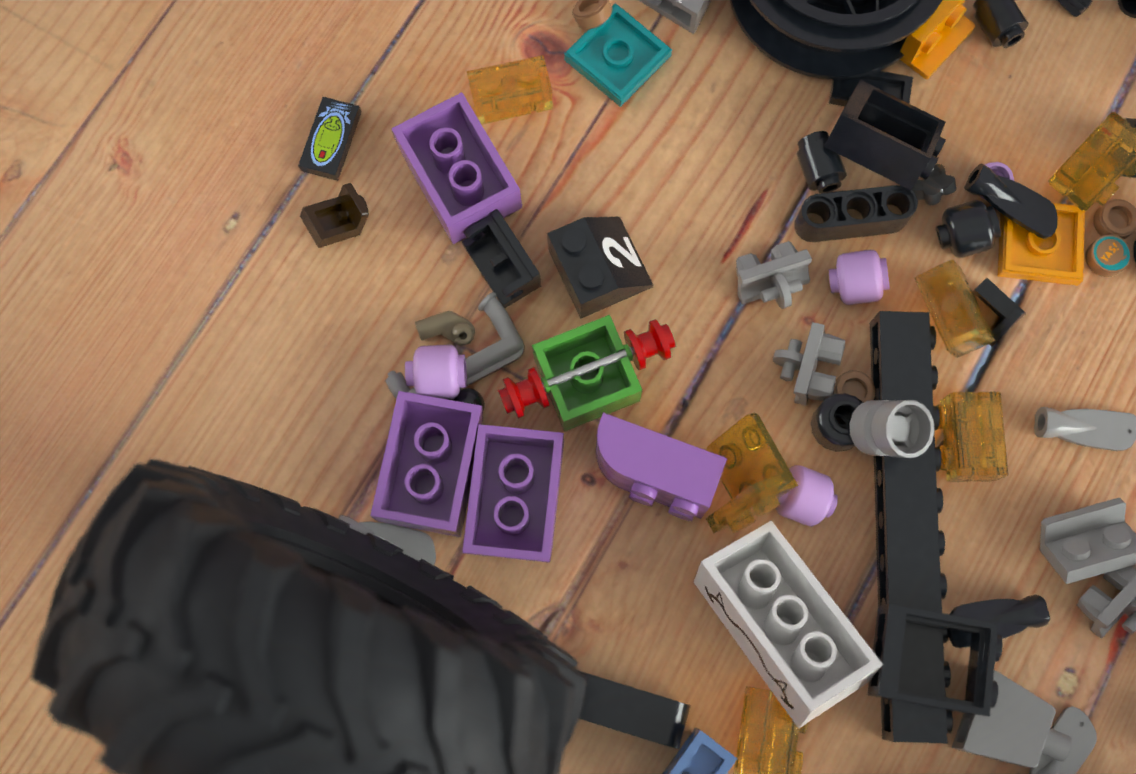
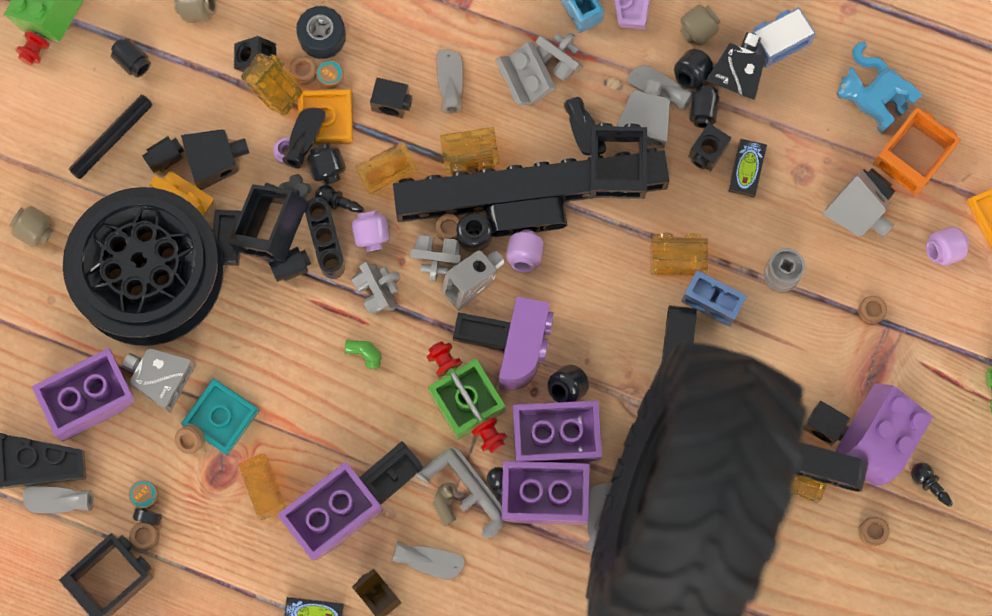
camera: 100 degrees left, 0 degrees up
(372, 295) = (429, 560): none -> light grey piece
(437, 371) = (483, 497): lavender head -> none
(586, 525) = (568, 384): none -> black head
(597, 263) = (385, 405): black slope -> none
(681, 252) = (367, 350): none -> bright green arm
(691, 409) = (481, 331): none -> black tile
(752, 474) = (519, 279): clear yellow bracket -> none
(769, 392) = (471, 277): none -> light grey torso
(786, 623) = (610, 251): white brick -> none
(859, 509) = (532, 215): none -> black beam
(892, 428) = (480, 198): light grey wheel -> none
(912, 237) = (335, 199): none -> black bar
(992, 78) = (212, 156): none -> black torso
(1001, 306) = (381, 134): black tile -> none
(1066, 332) = (390, 98): none -> black brick

